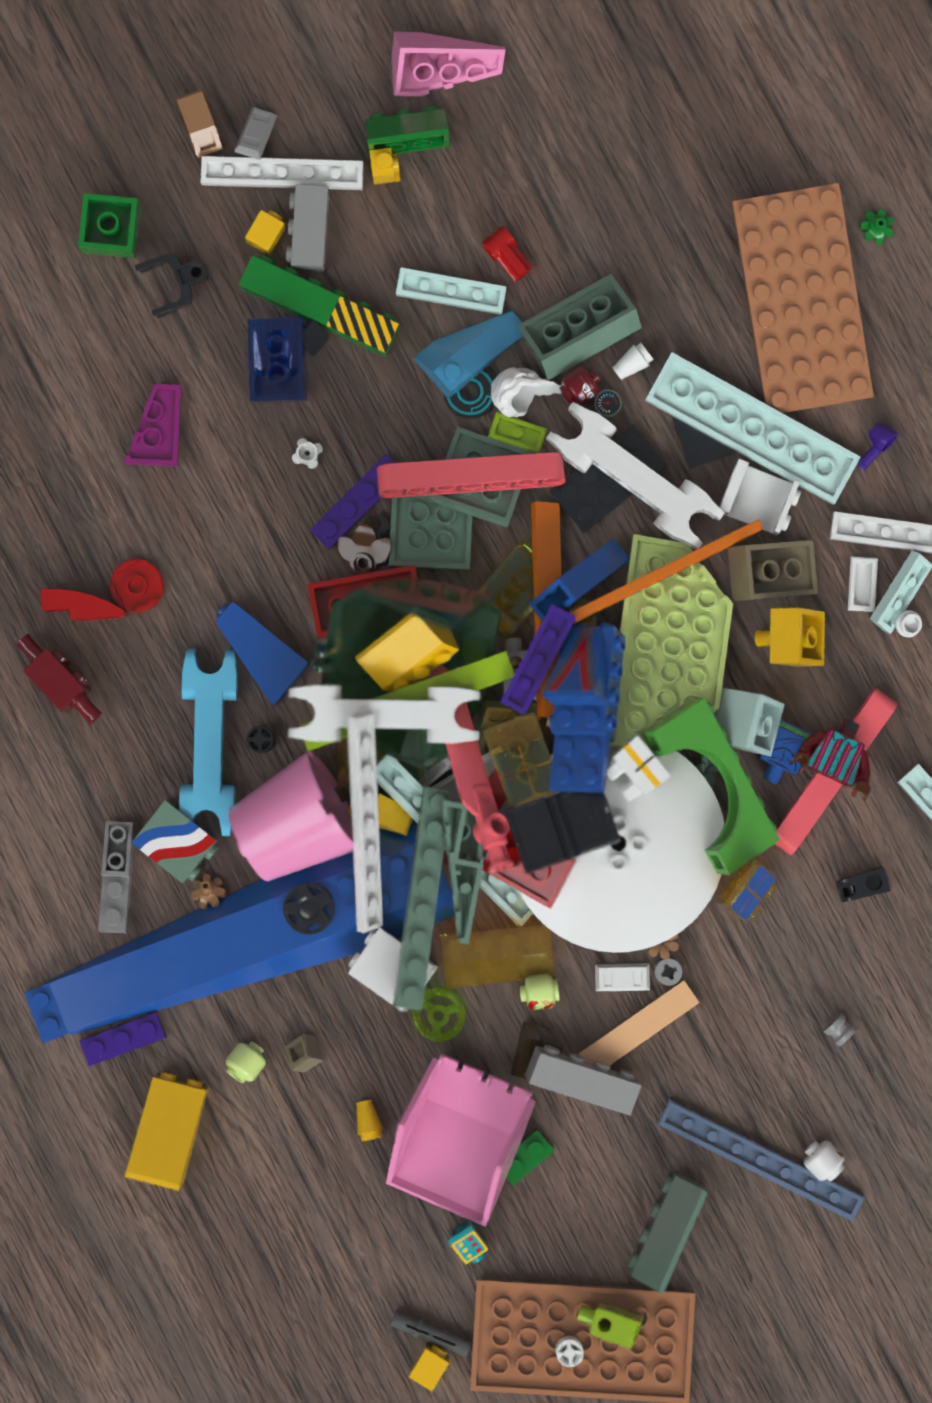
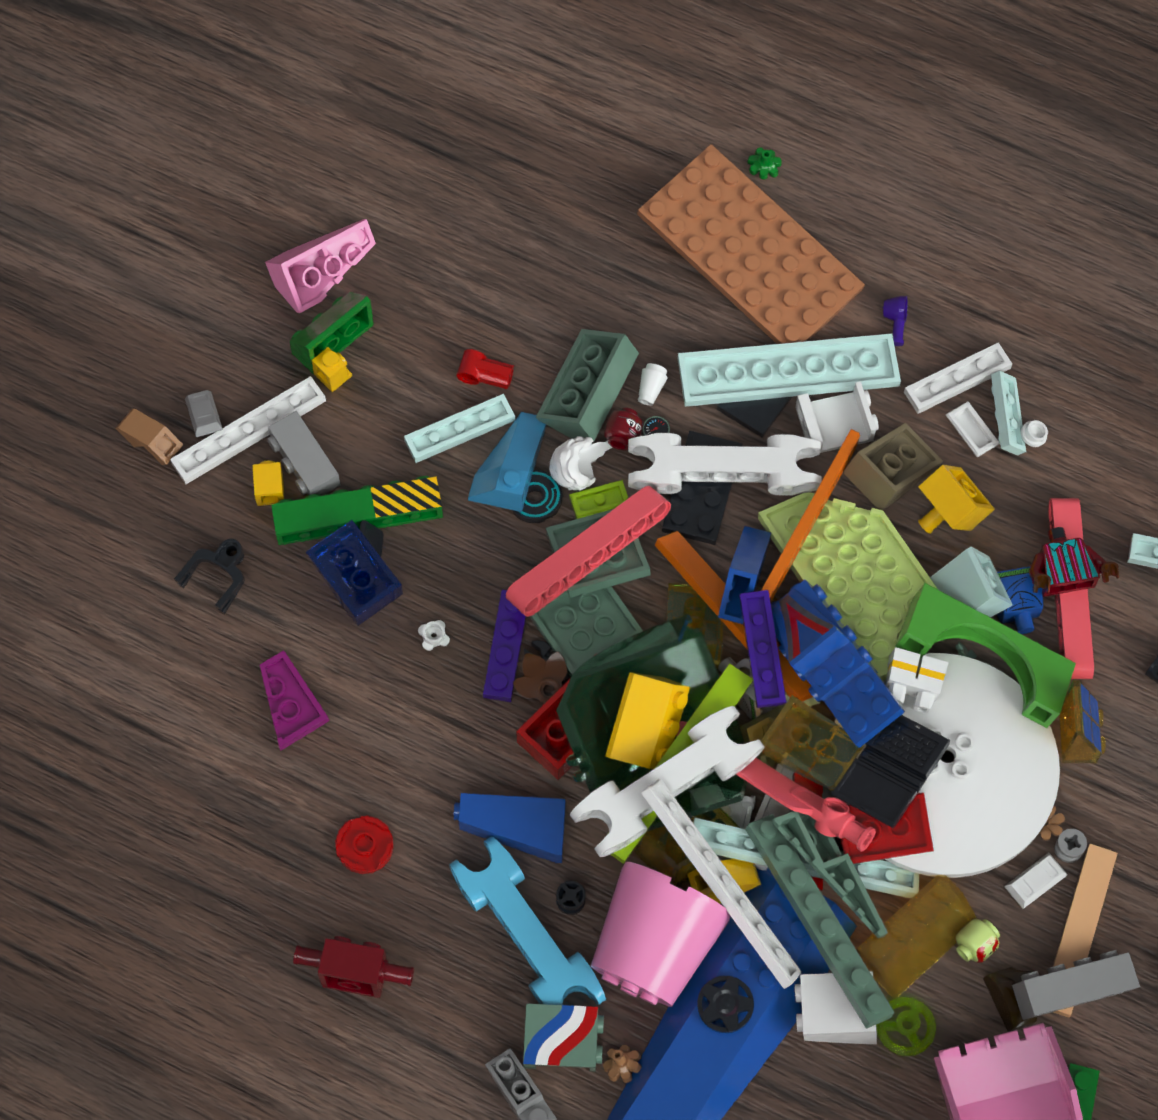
camera: 35 degrees left, 20 degrees down
(80, 605) = (327, 892): red slope -> none
(109, 225) = (129, 562): green brick -> none

